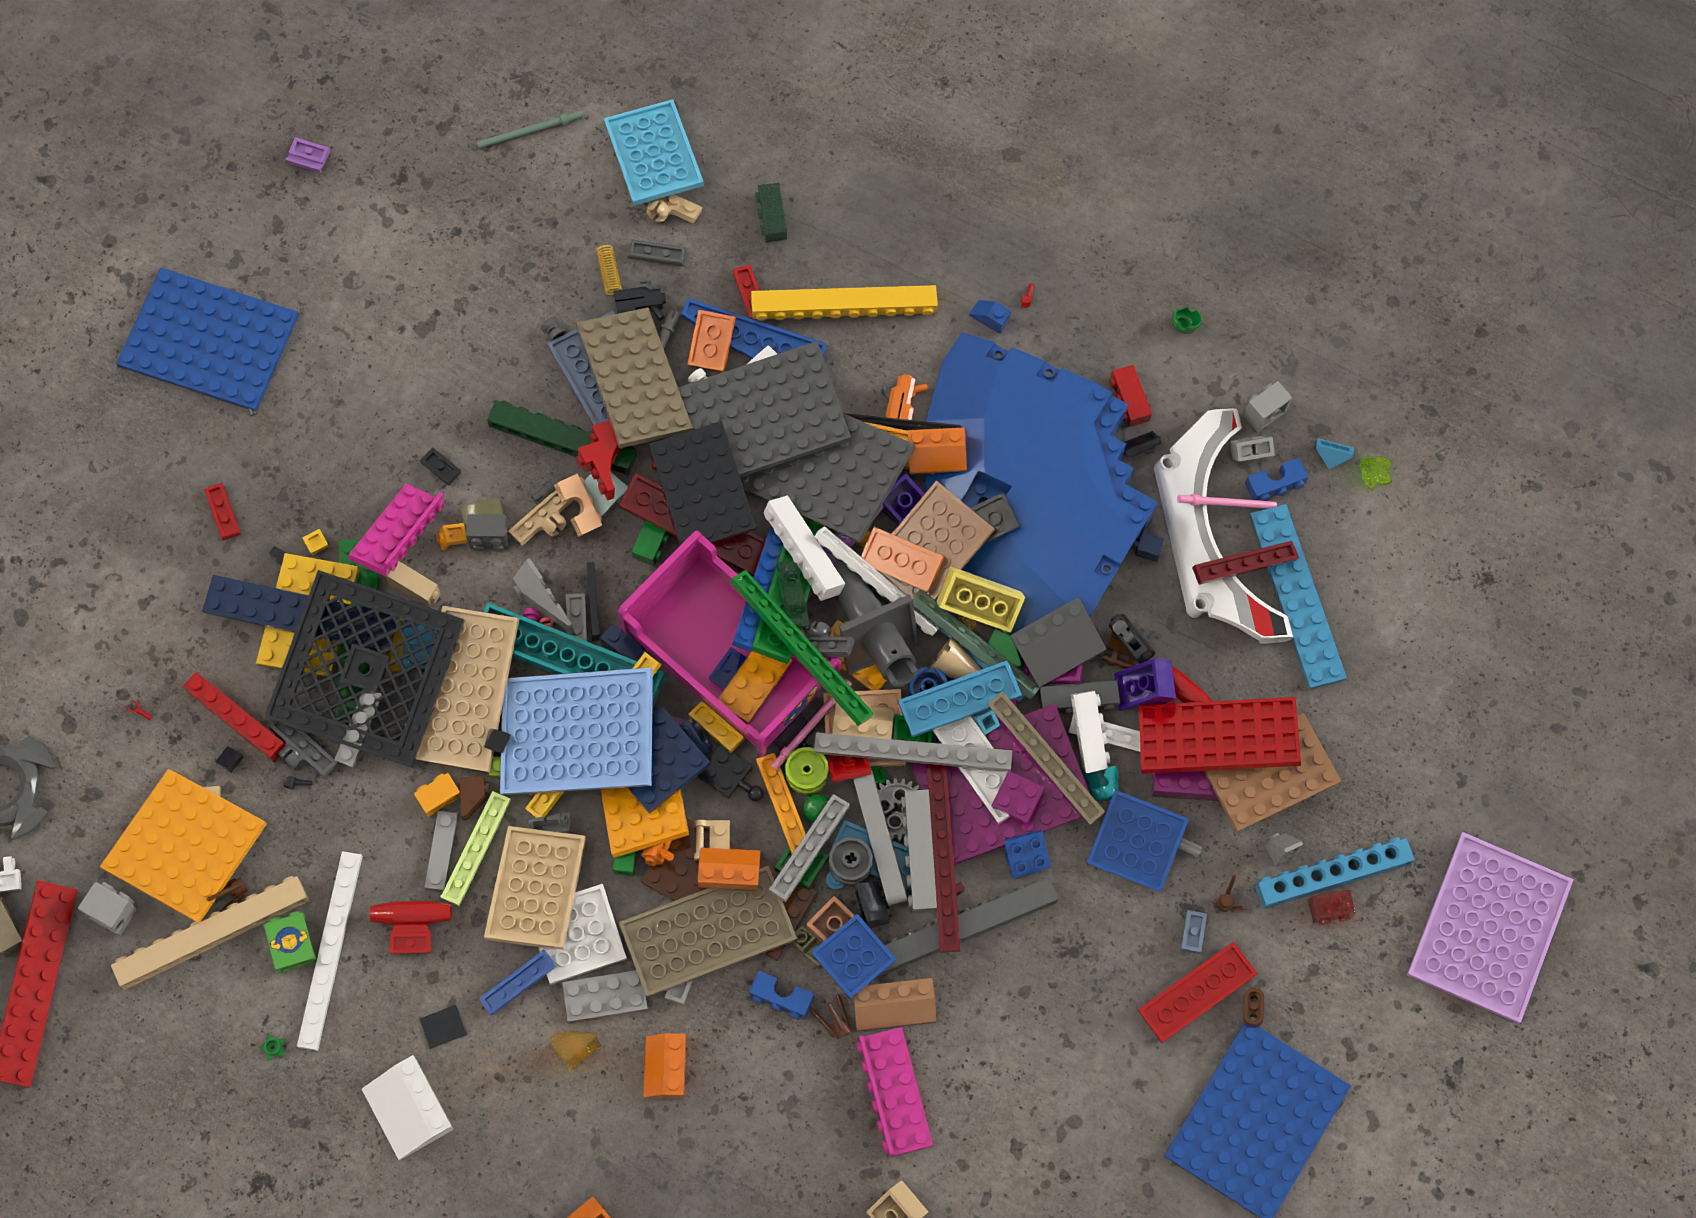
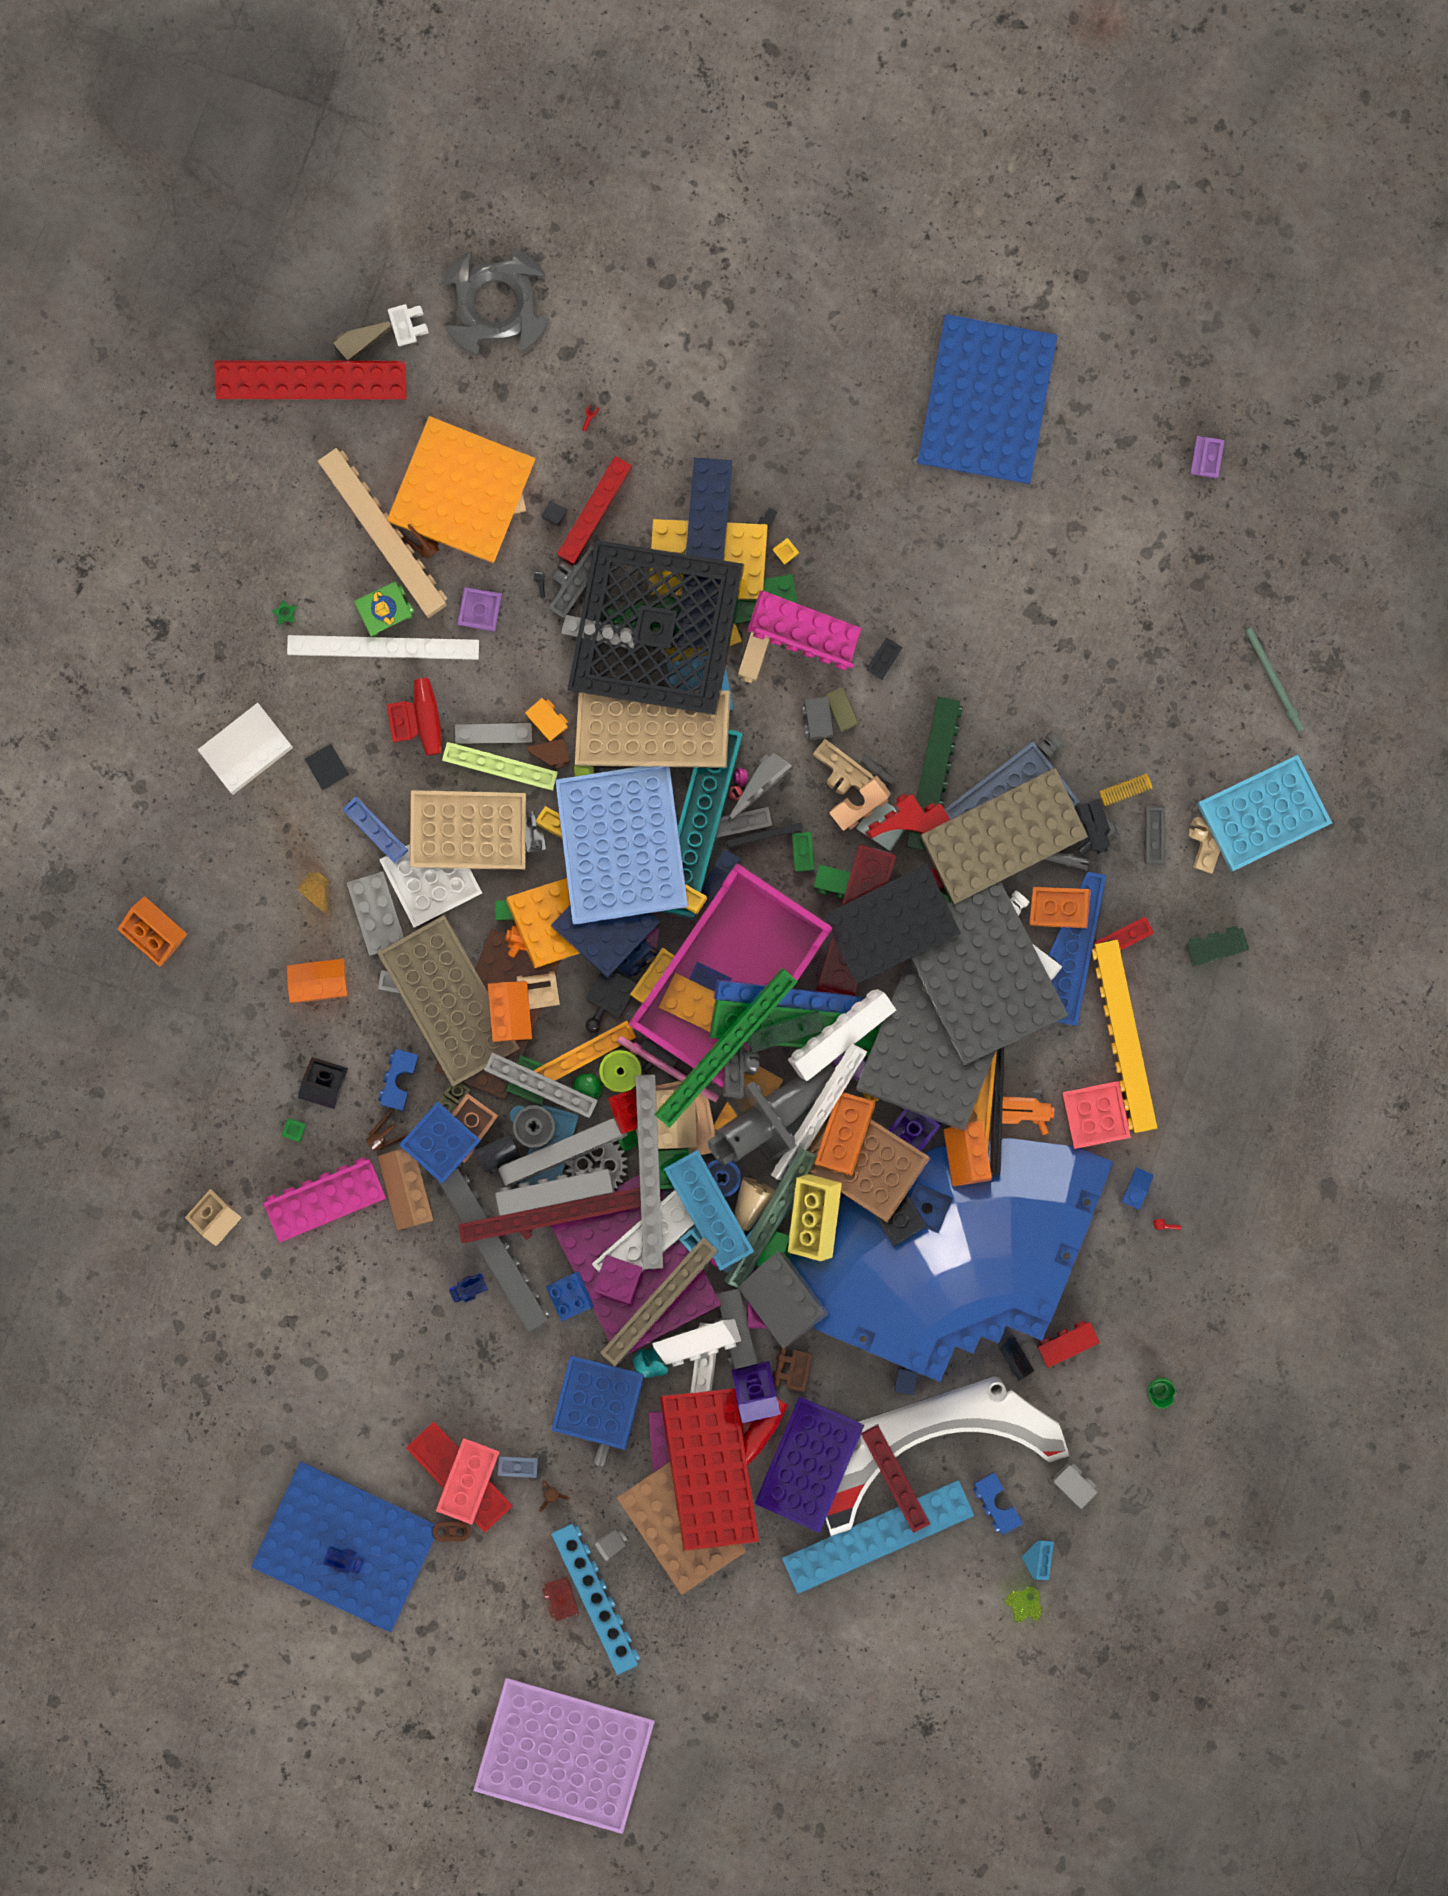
camera: 85 degrees right, 15 degrees up
(108, 907) = (389, 433): light grey piece -> none
(222, 511) = (805, 453): red tile -> none
(311, 847) = (479, 609): none -> medium lavender tile
(451, 535) = (812, 683): light orange bracket -> none
(496, 740) = (604, 767): black slope -> none
(616, 568) = (803, 851): none -> green plate
(772, 1075) = (322, 1083): none -> black slope
(817, 1114) = (293, 1130): none -> green tile
(915, 339) = (1096, 1115): none -> coral plate
(1005, 955) = (468, 1288): none -> clear blue piece
(1131, 638) = (800, 1372): black piece -> none
(1196, 500) = (952, 1421): bright pink bar -> none
(1204, 981) = (467, 1481): none -> coral plate
(1222, 643) = (809, 1464): none -> dark purple plate
(1252, 448) = (1027, 1474): light grey brick -> none
(1274, 1121) = (343, 1560): none -> clear blue piece

